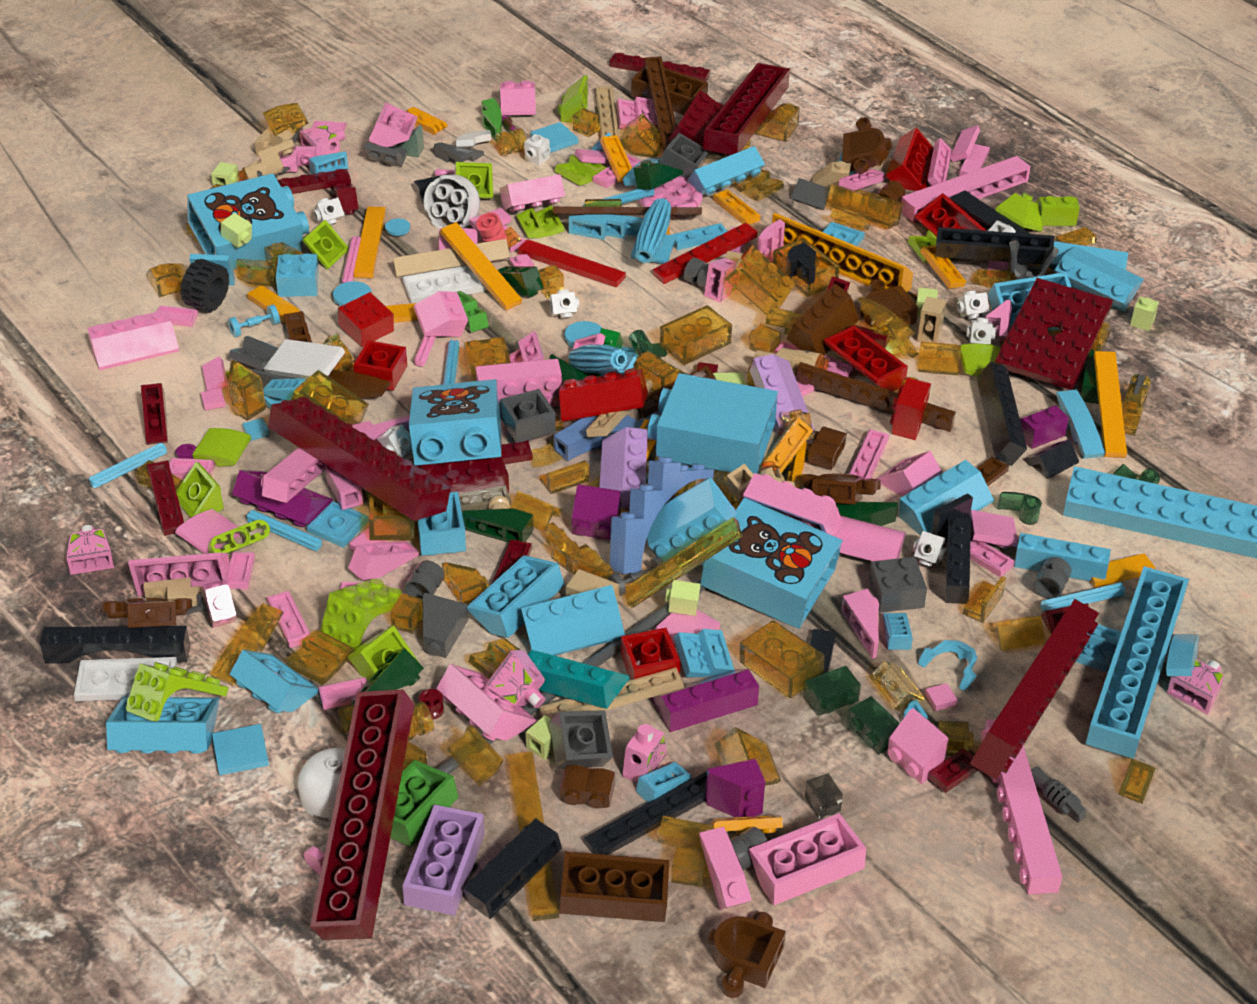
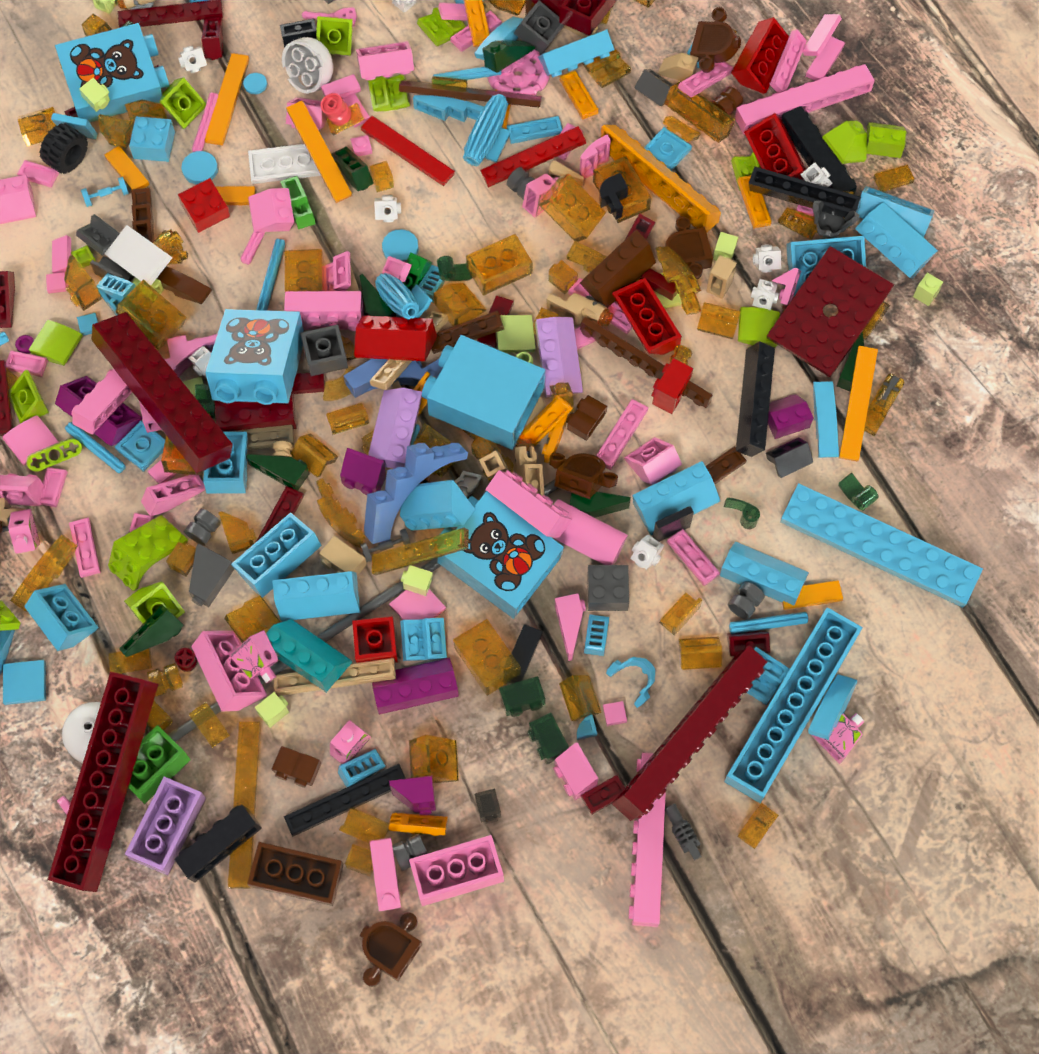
camera: 10 degrees right, 25 degrees up
(319, 657) = (103, 593): clear yellow slope -> none
(340, 693) = (115, 634): bright pink tile -> none
(382, 361) = (208, 264): red brick -> none
(446, 258) = (289, 135): tan tile -> none
(581, 738) = (296, 724): dark grey brick -> none
(957, 734) = (612, 762): clear yellow brick -> none
(958, 560) = (667, 570): black brick -> none
(993, 529) = (709, 536): bright pink tile -> none

